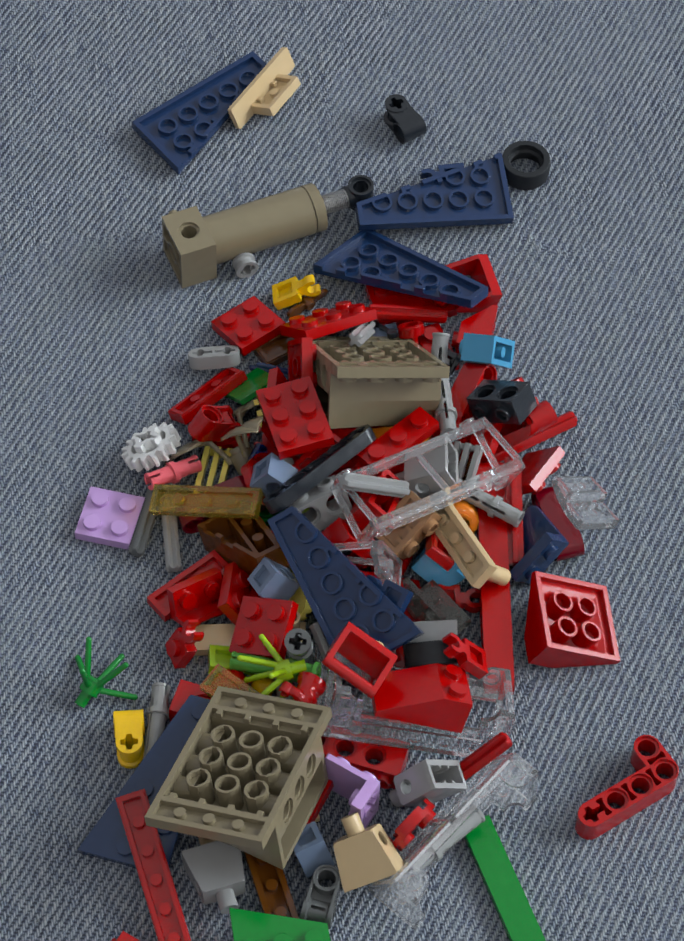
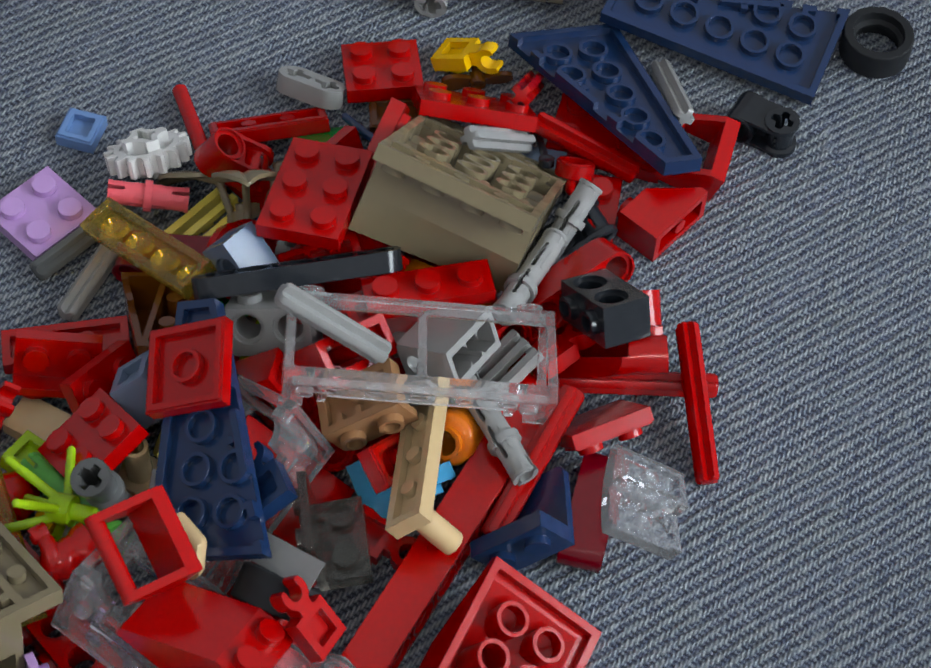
camera: 30 degrees right, 0 degrees up
(90, 454) = (81, 130): none -> medium blue tile
(159, 416) = (189, 115): none -> red bar
(304, 553) = (189, 368): none -> red tile
(351, 293) = (527, 88): none -> red axle
(433, 253) = (672, 91): none -> light grey axle
(487, 350) = (641, 236): dark azure brick -> none
(497, 247) = (764, 122): none -> black piece
(575, 434) = (697, 403): none -> red axle

